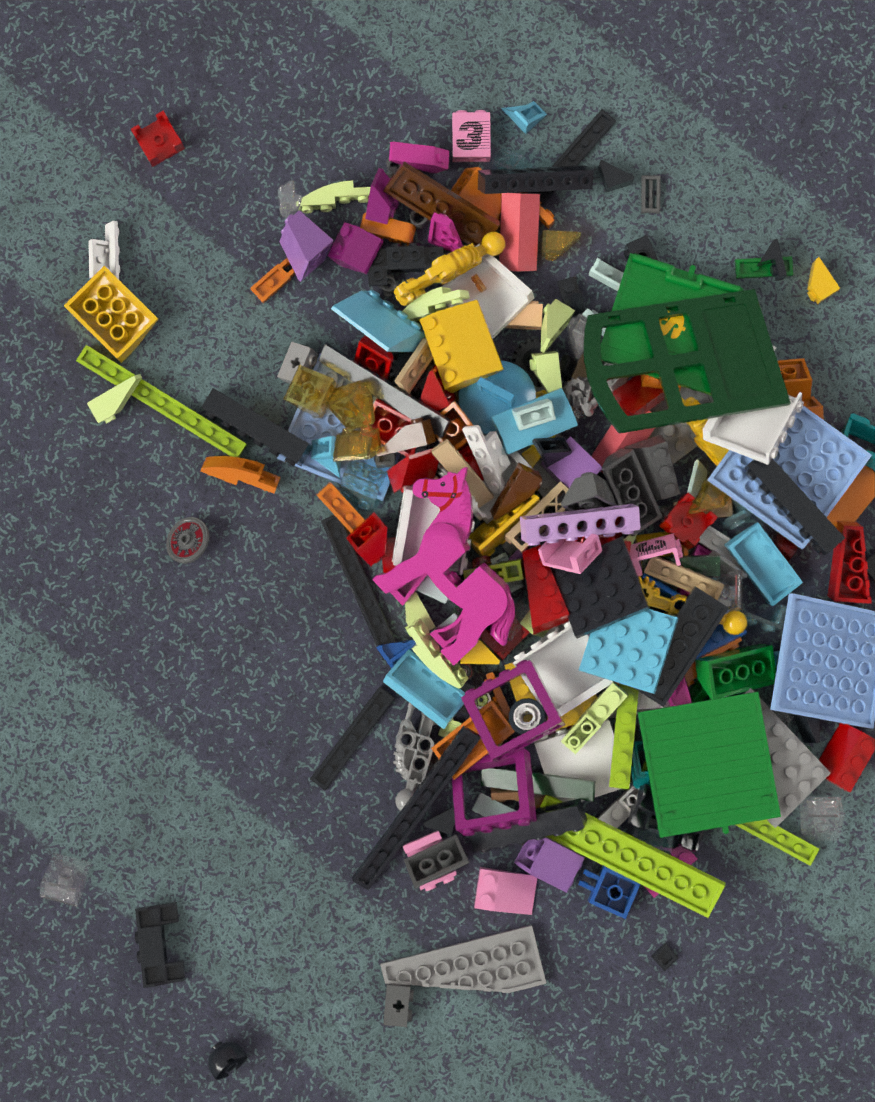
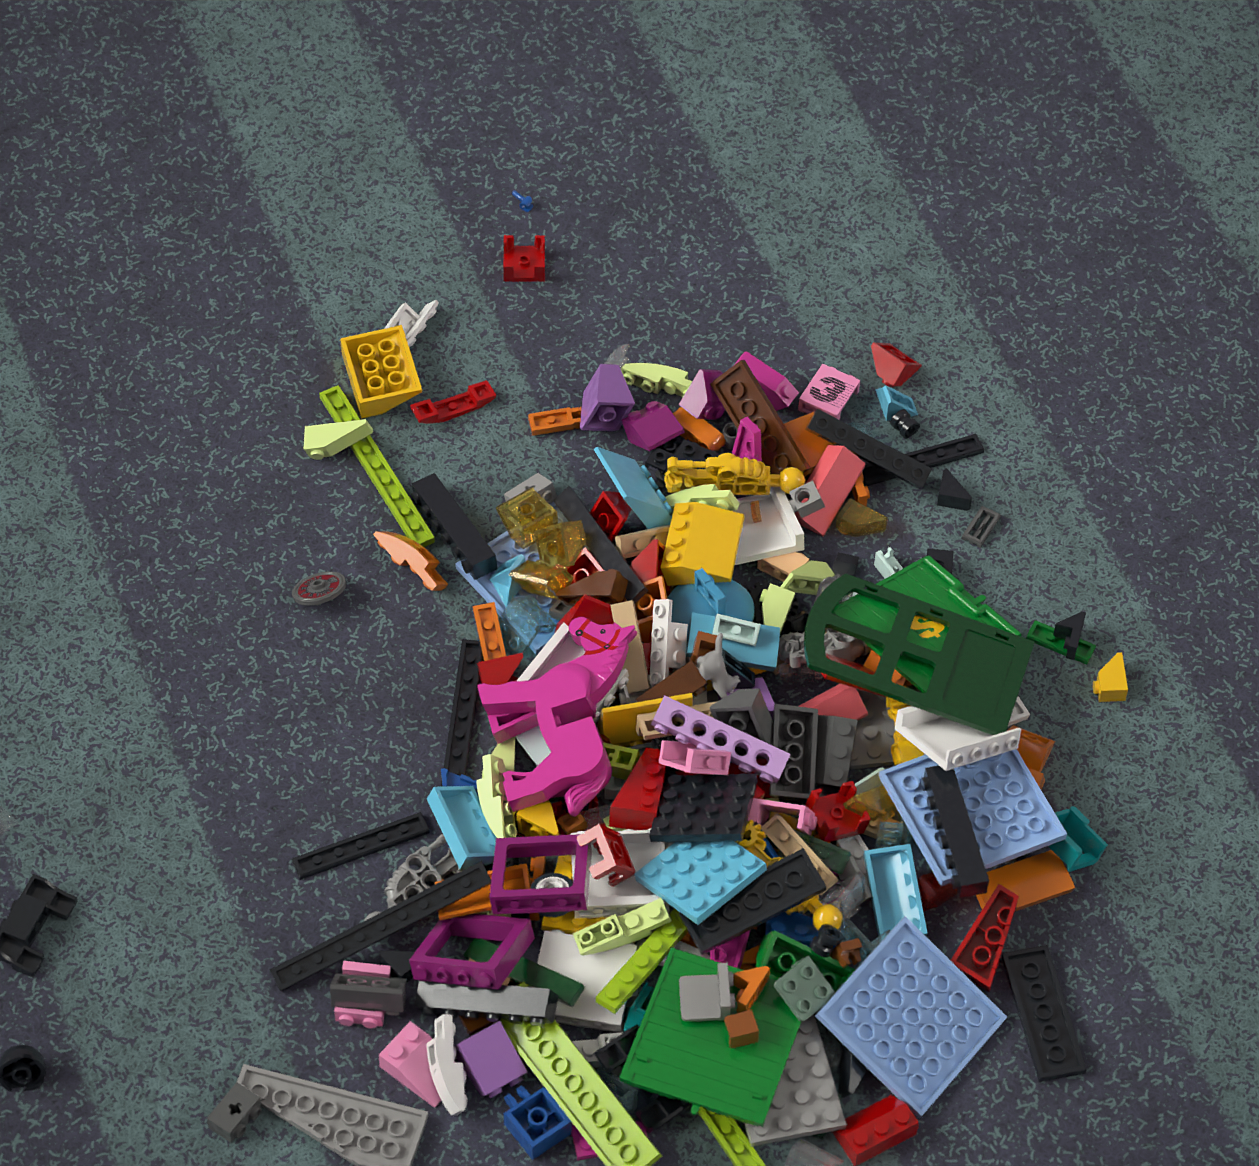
camera: 25 degrees right, 30 degrees down
(125, 79) = (525, 202): none -> blue hand
(186, 311) = (455, 406): none -> red slope
(502, 649) = (572, 824): none -> dark orange tile
(504, 78) = (893, 364): none -> slope
(519, 249) = (806, 491): none -> light grey brick
(521, 448) = (703, 644): none -> dark orange panel
(527, 891) = (447, 1074): none -> white slope
(543, 466) = (713, 668): none -> light grey animal
(545, 132) = (905, 424): none -> black wheel
(556, 666) = (614, 851): none -> red panel
(688, 742) = (707, 995): none -> light grey bracket
(716, 712) = (751, 984): none -> orange slope
(729, 755) = (741, 1029): none -> dark orange panel
(744, 643) = (827, 938): none -> black wheel
(754, 694) = (804, 988): none -> sand green bracket
(759, 637) = (847, 950): none -> dark orange tile

